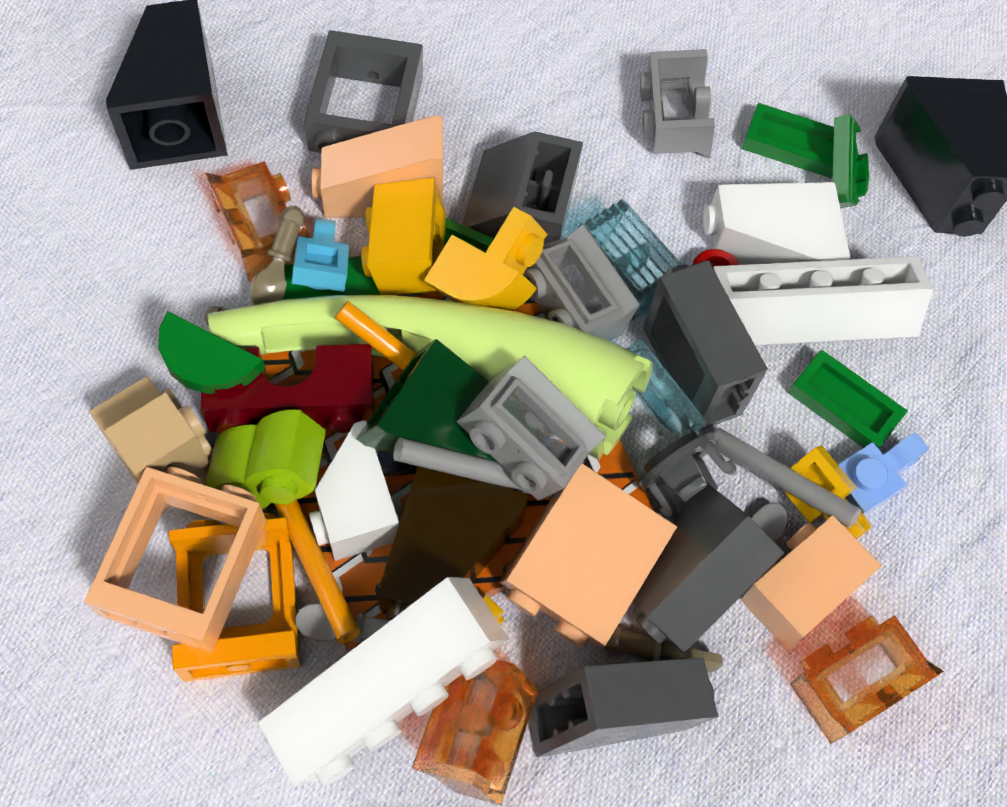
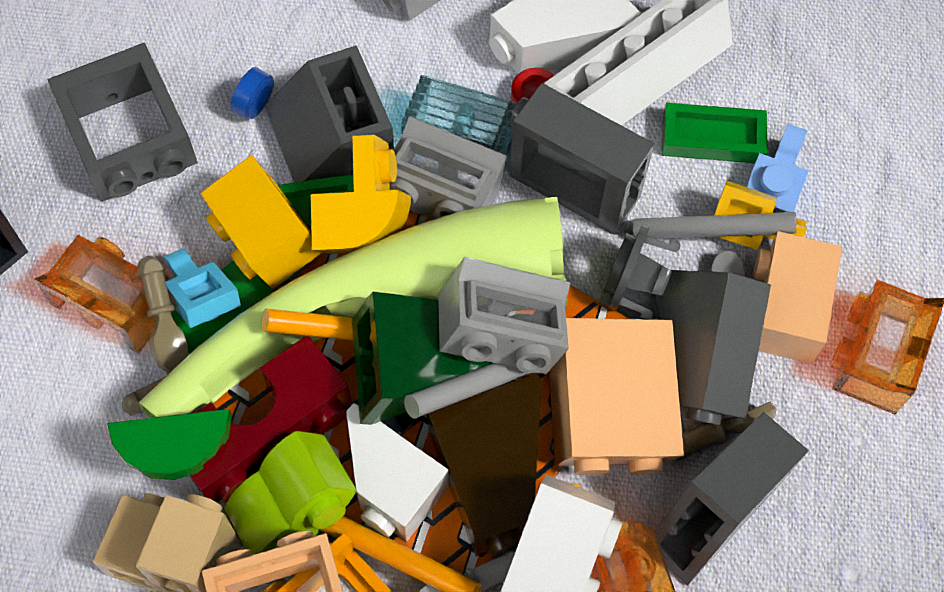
camera: 30 degrees left, 0 degrees up
(385, 156) = (167, 193): light nougat slope -> none
(480, 134) = (252, 93): none -> blue tile
(665, 398) = (581, 223): clear light blue tile -> none

